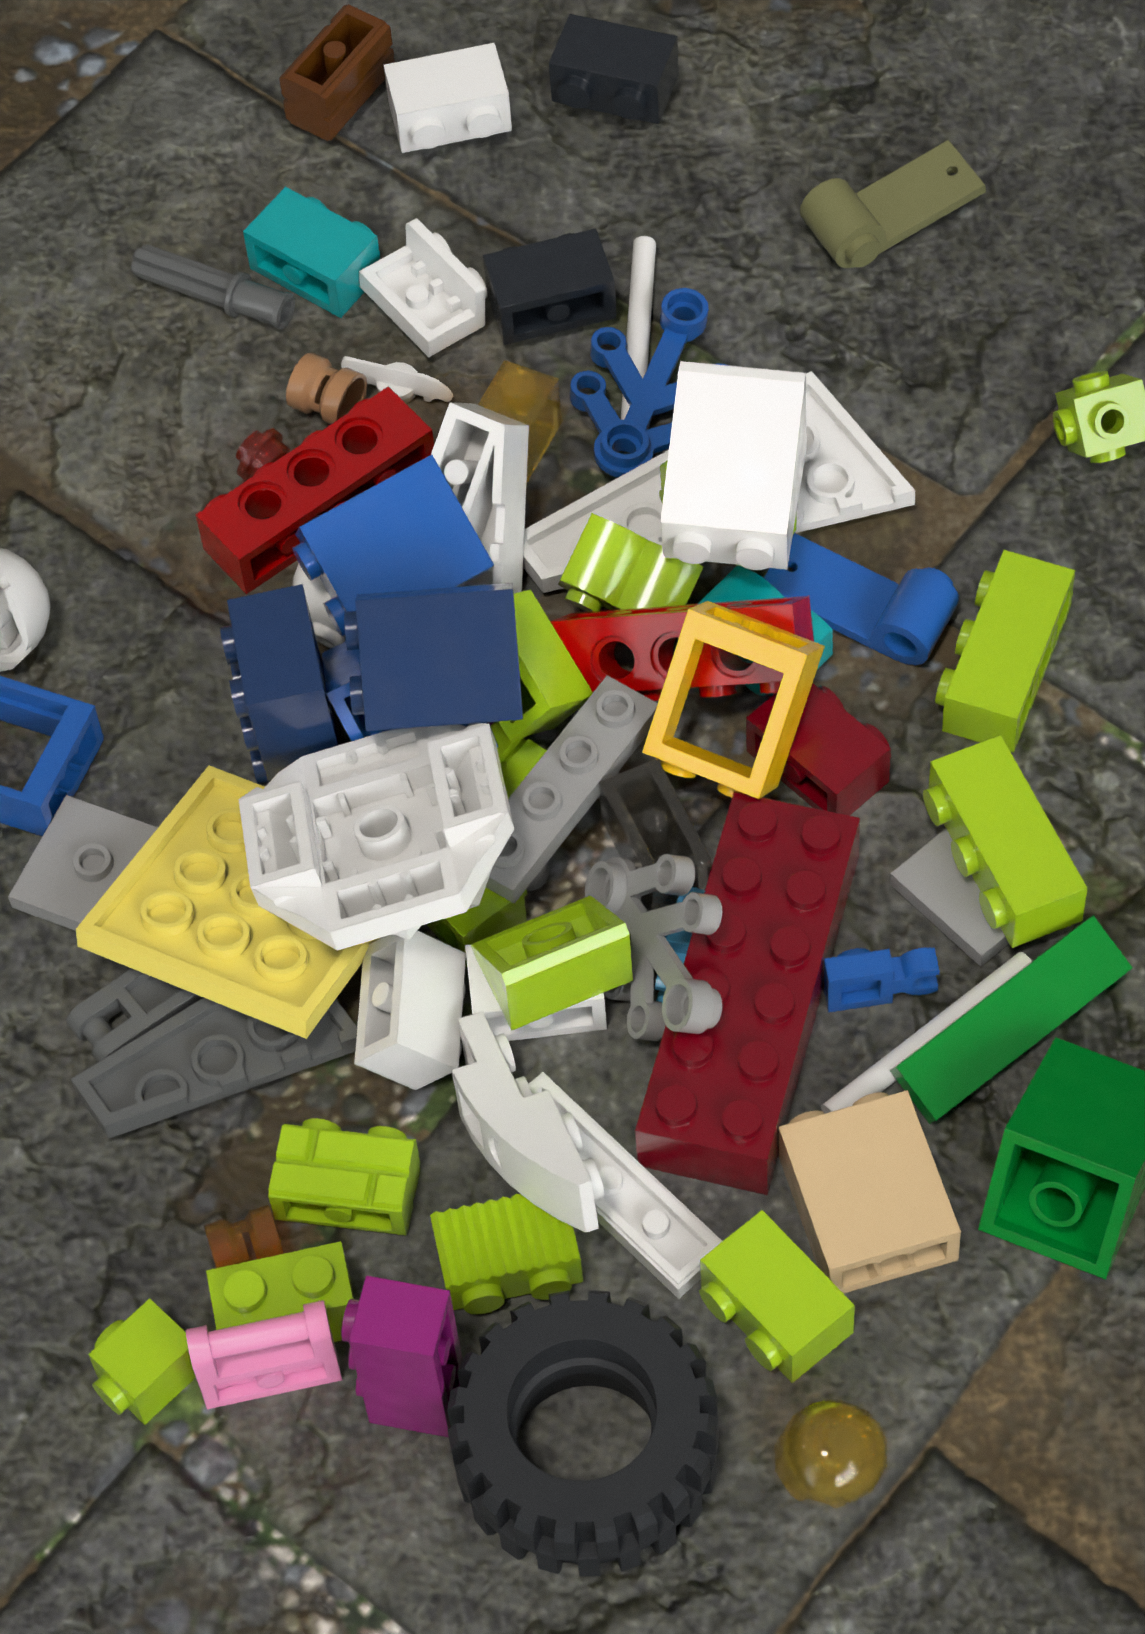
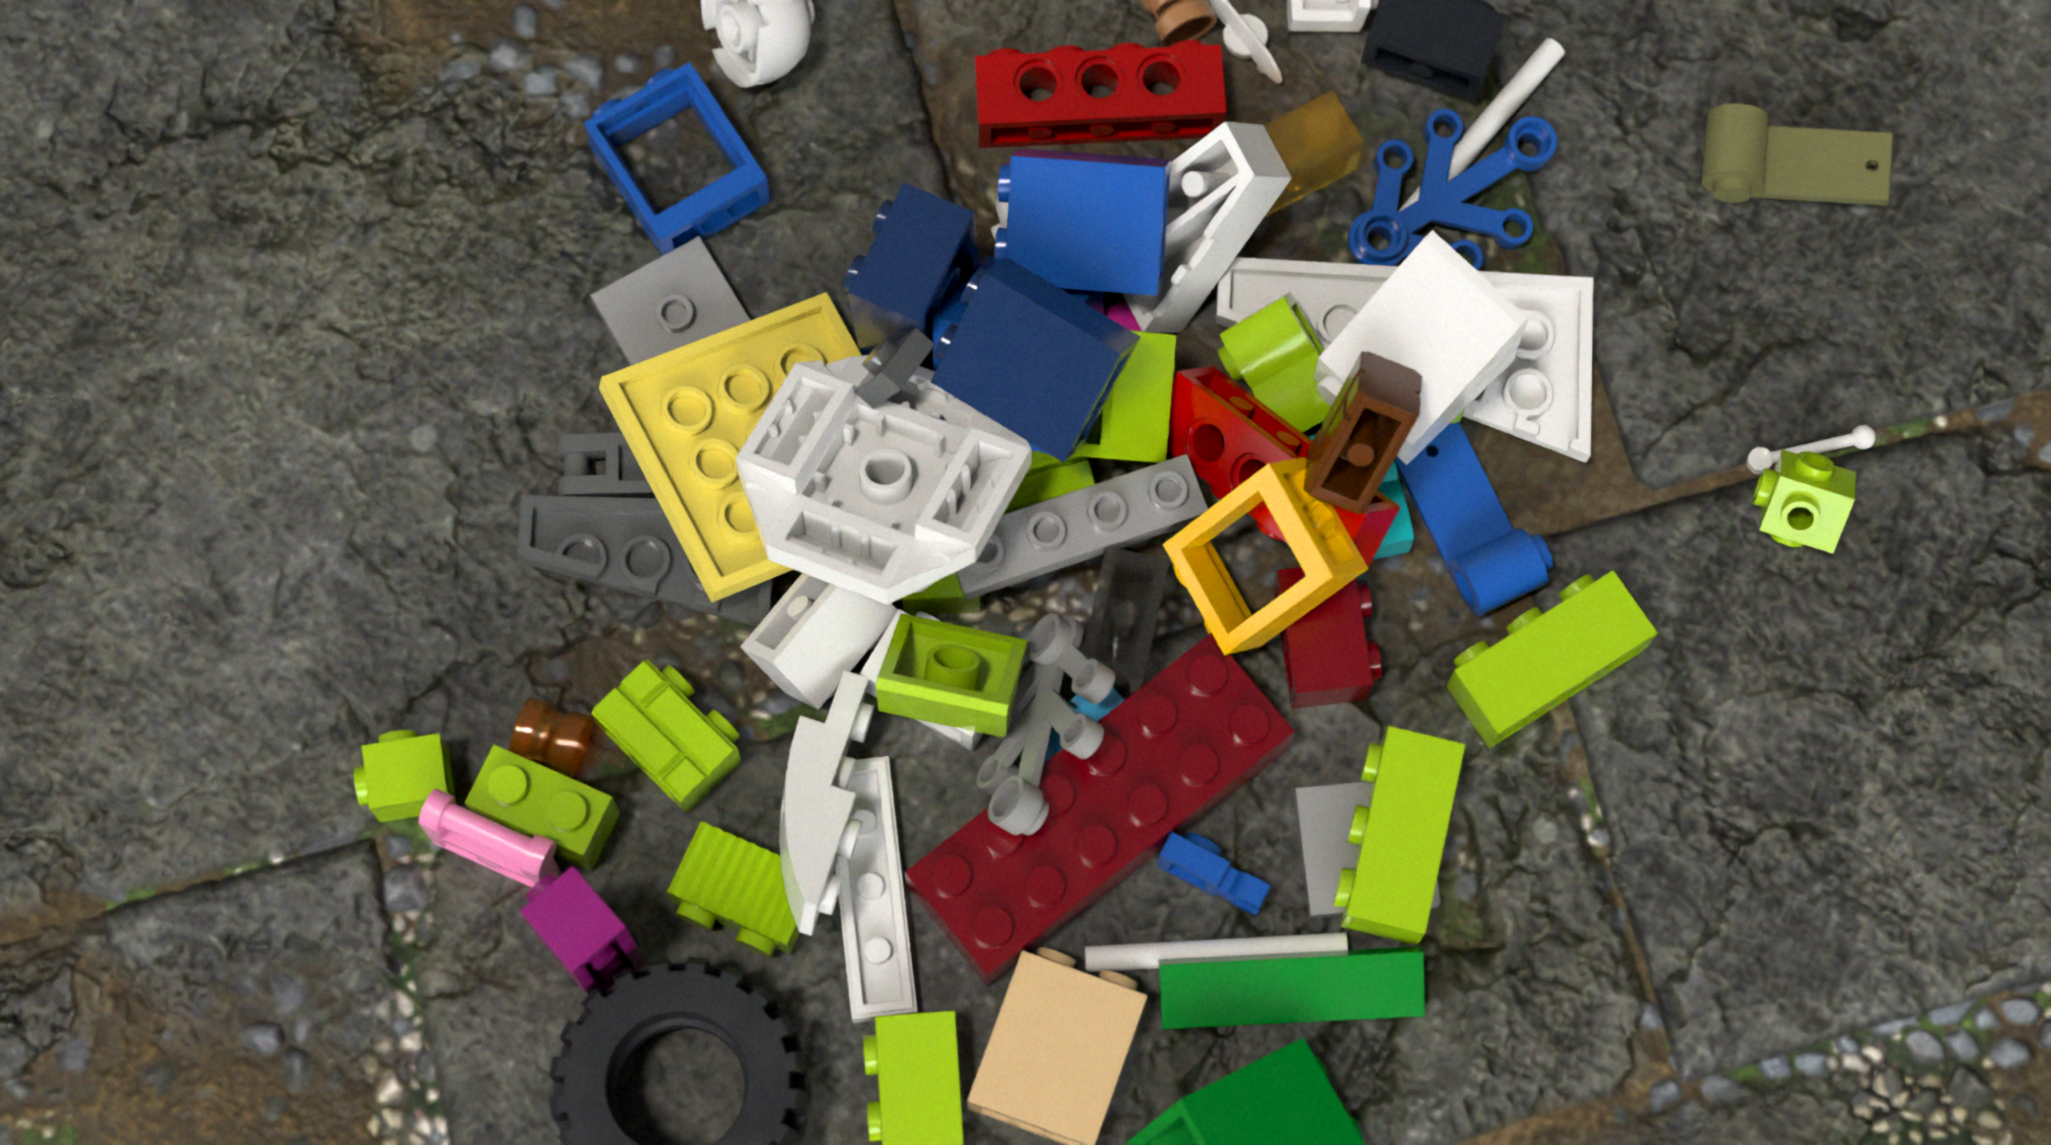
camera: 30 degrees right, 15 degrees up
(259, 450) = (1079, 29): clear red plate -> none
(323, 745) = (892, 366): none -> dark grey plate
(744, 539) = (1363, 432): none -> reddish brown brick
(1042, 419) = (1861, 437): none -> white hinge

